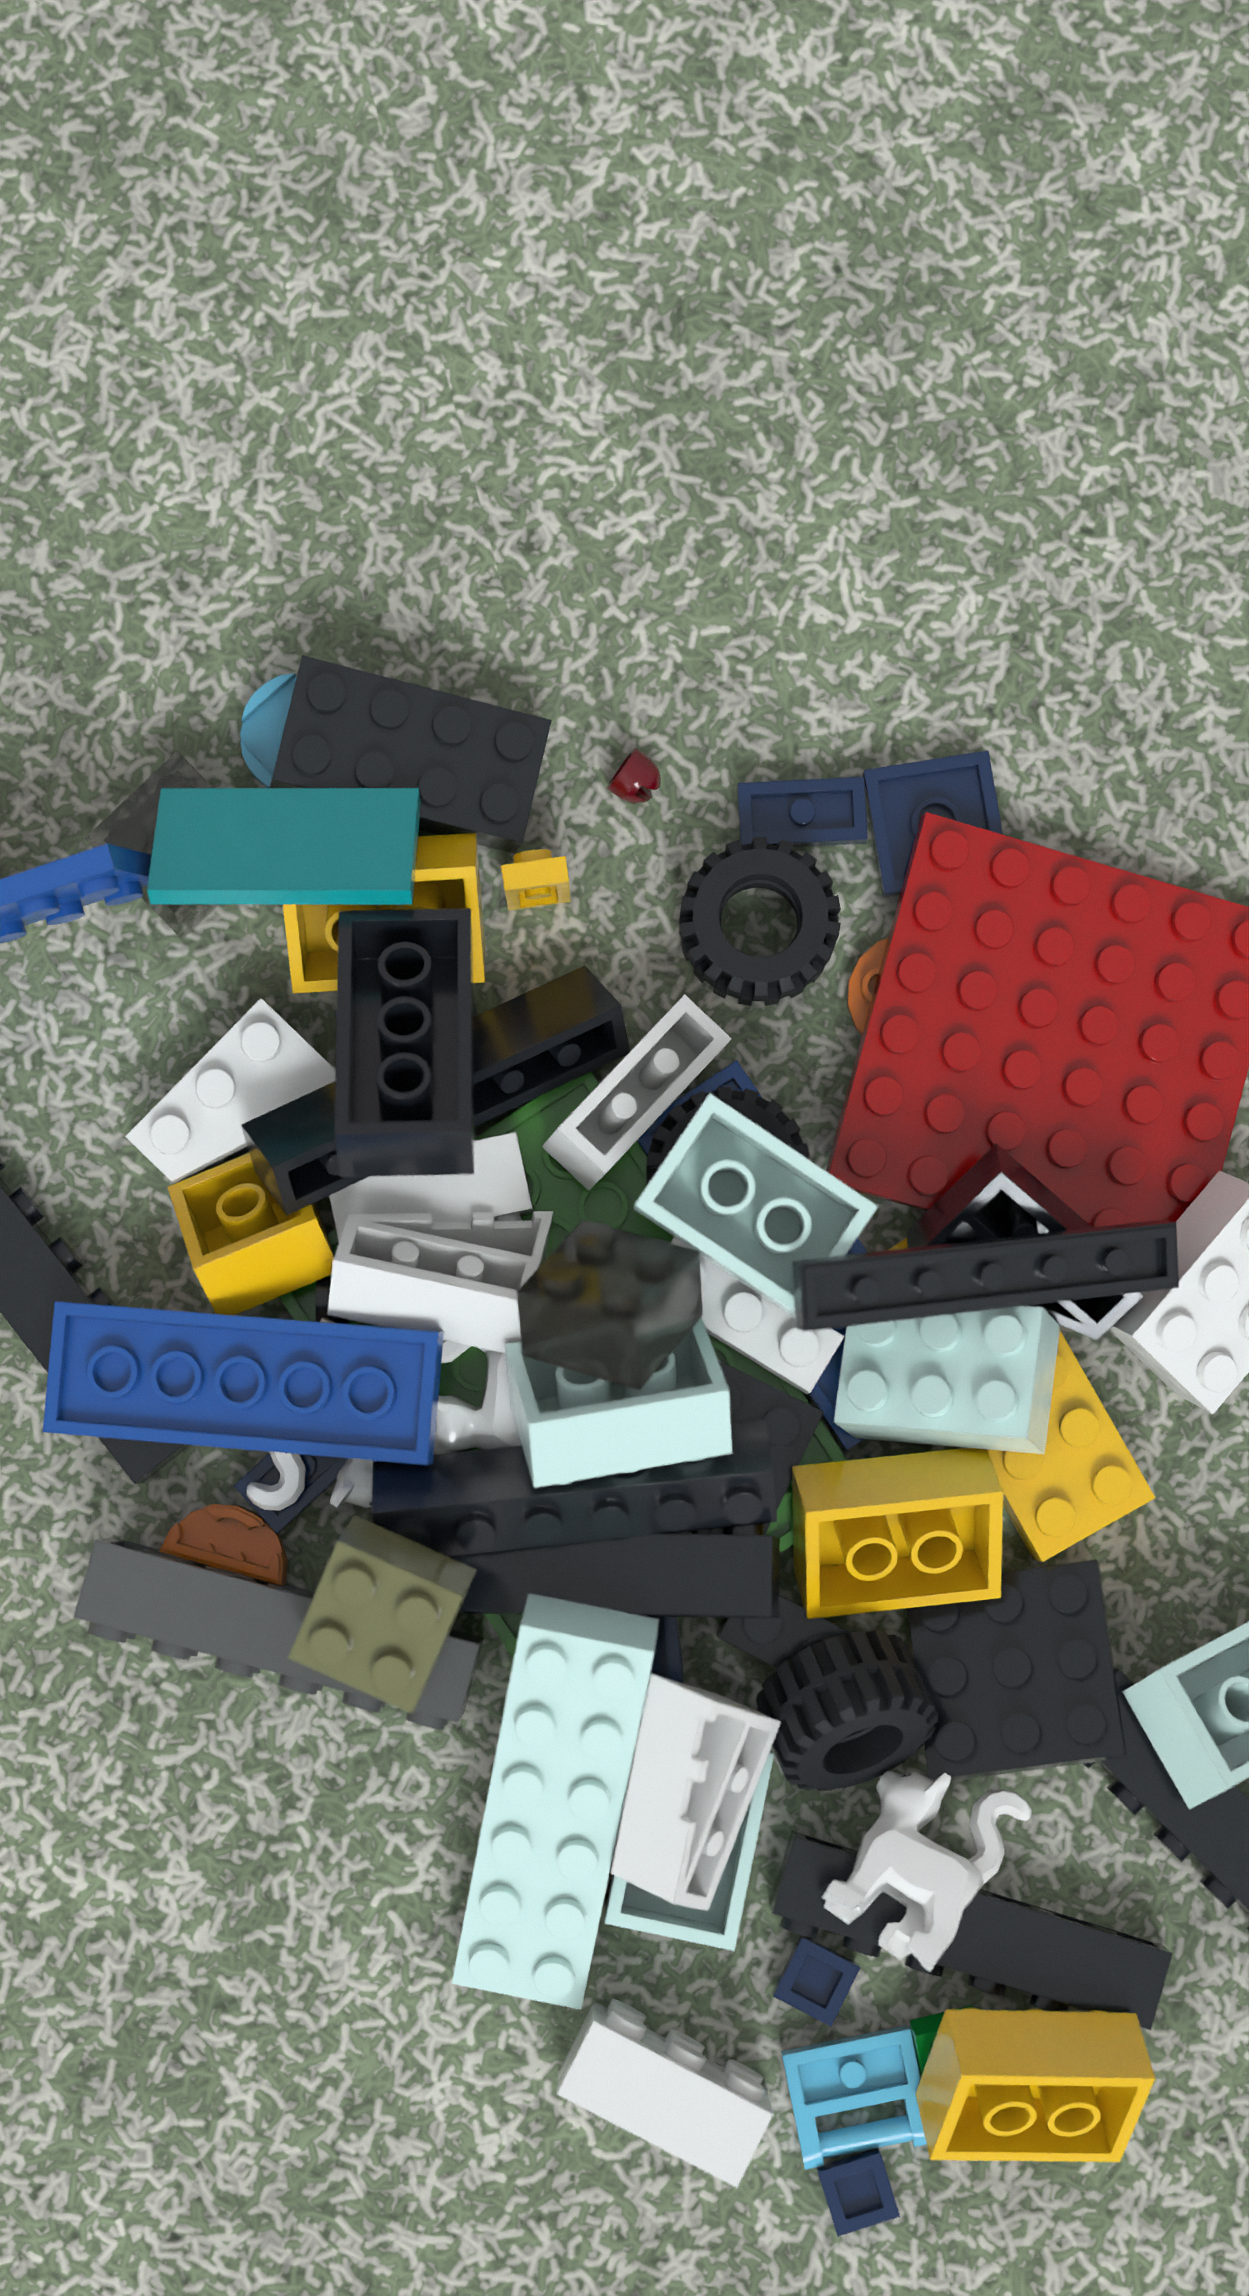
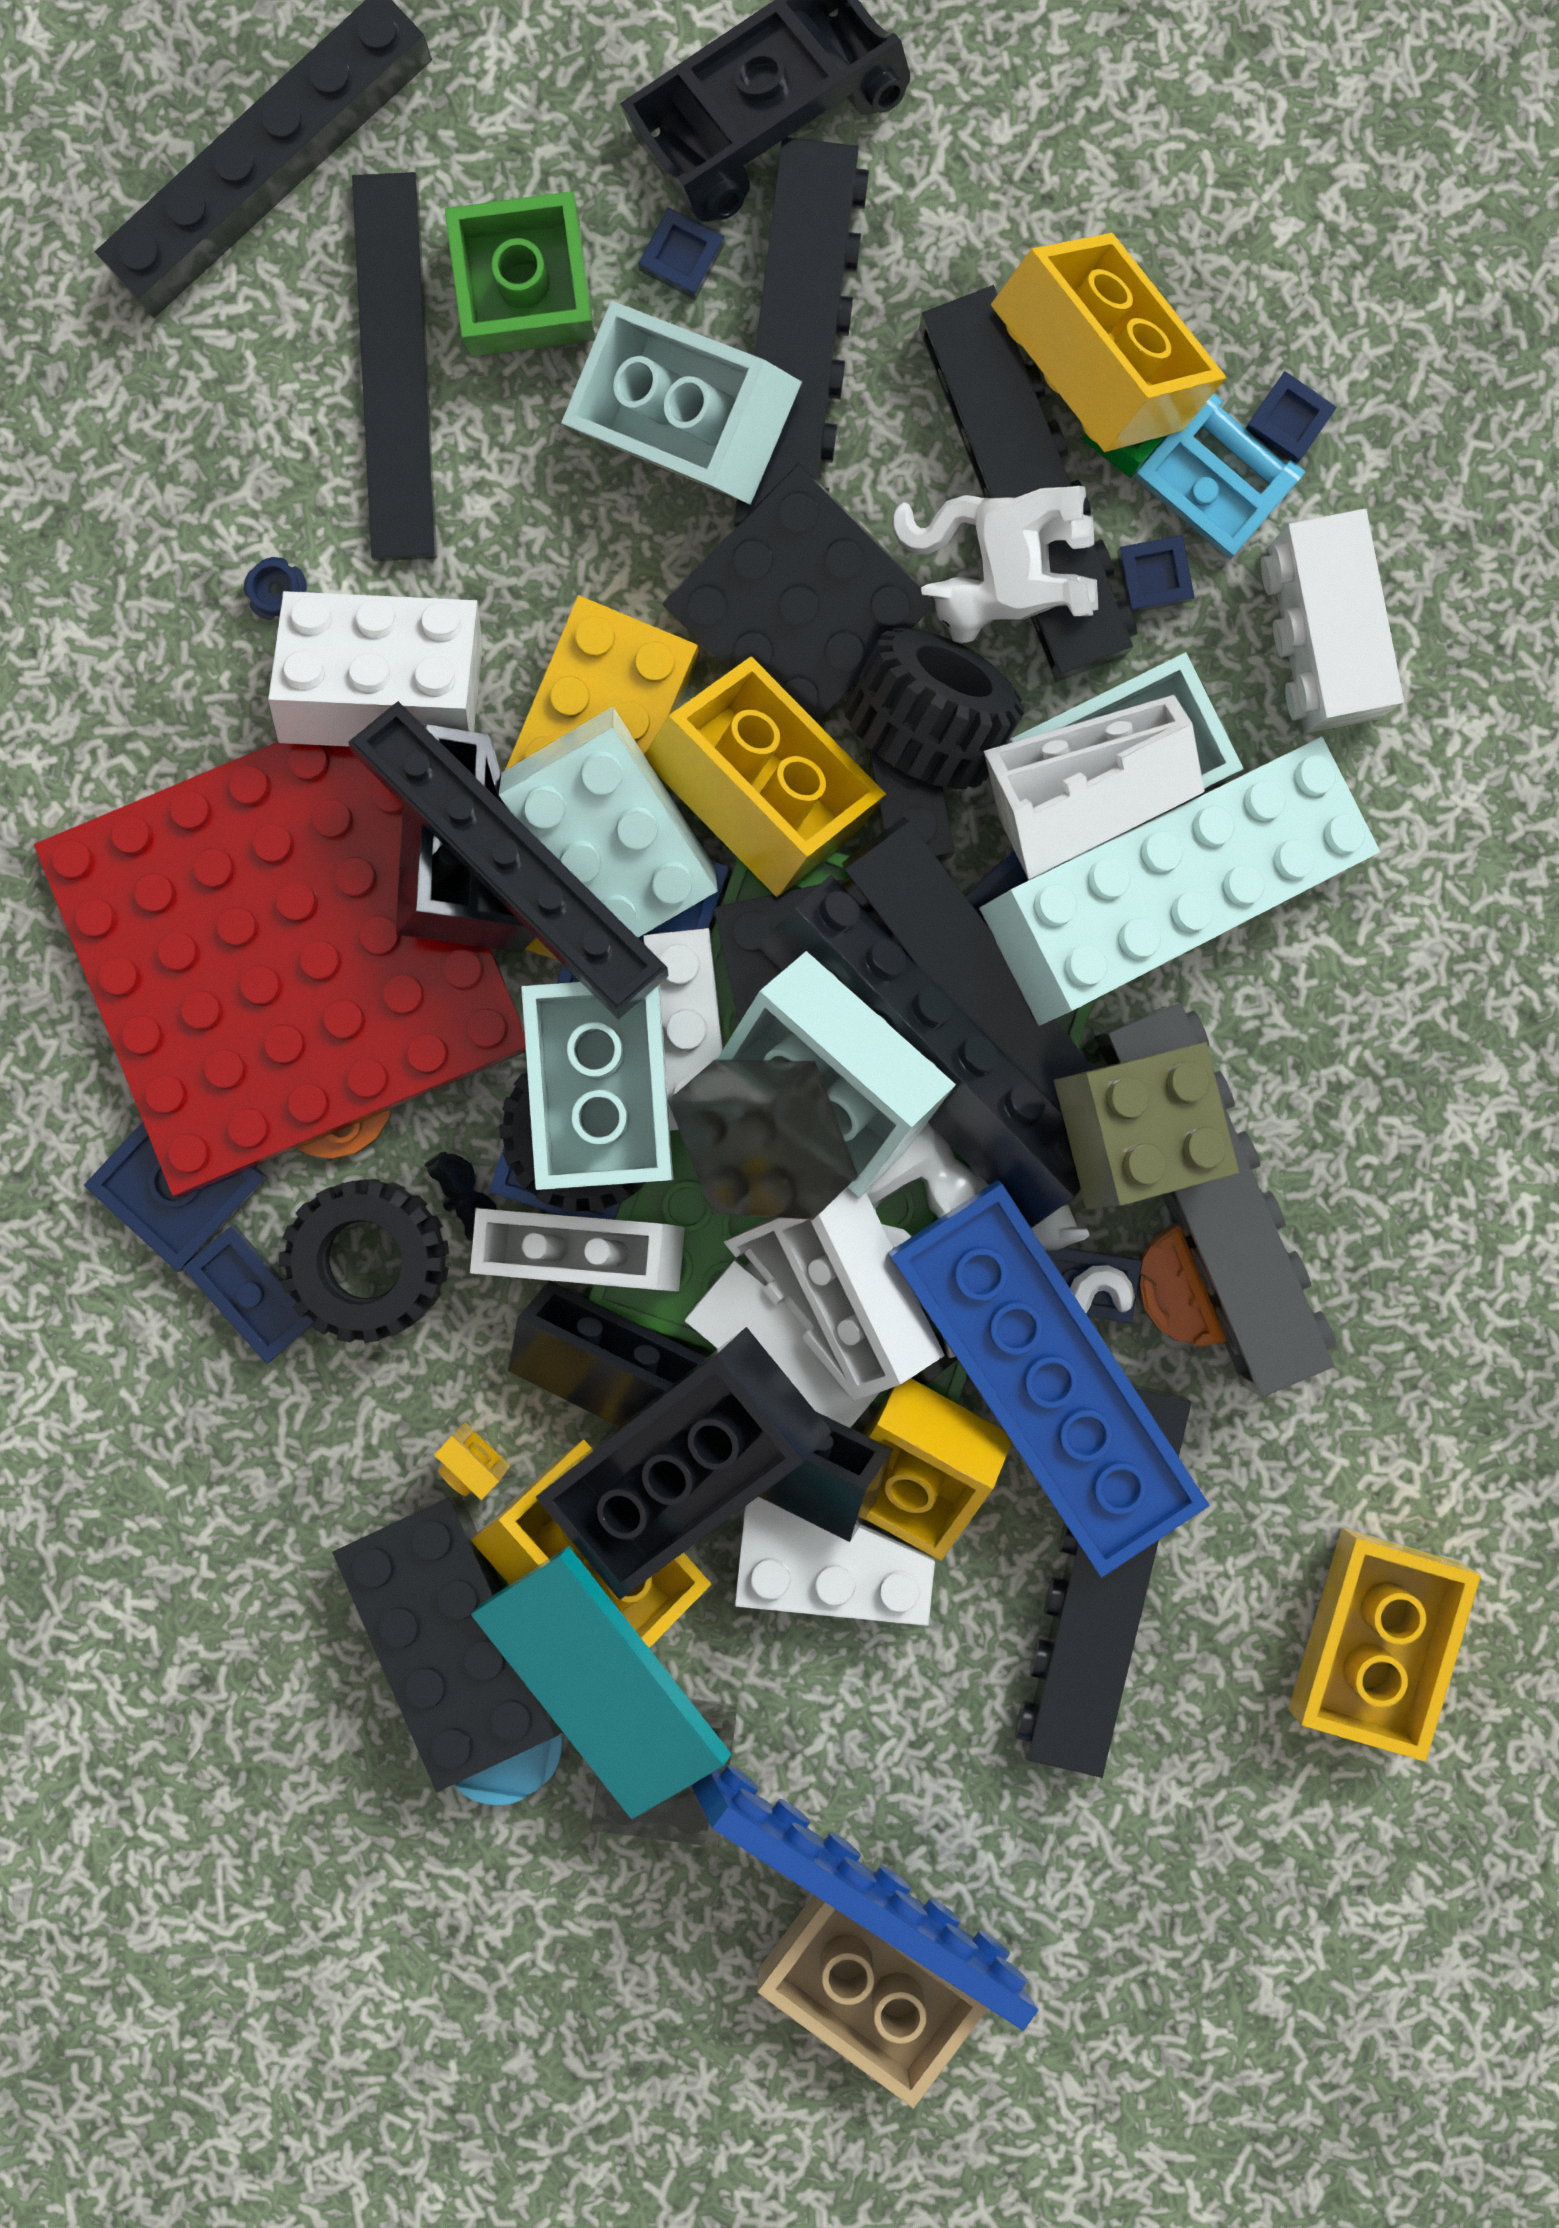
camera: 125 degrees left, 5 degrees up
(635, 778) = (326, 1448): dark red hinge -> none
(763, 1041) = (457, 1183): none -> black piece

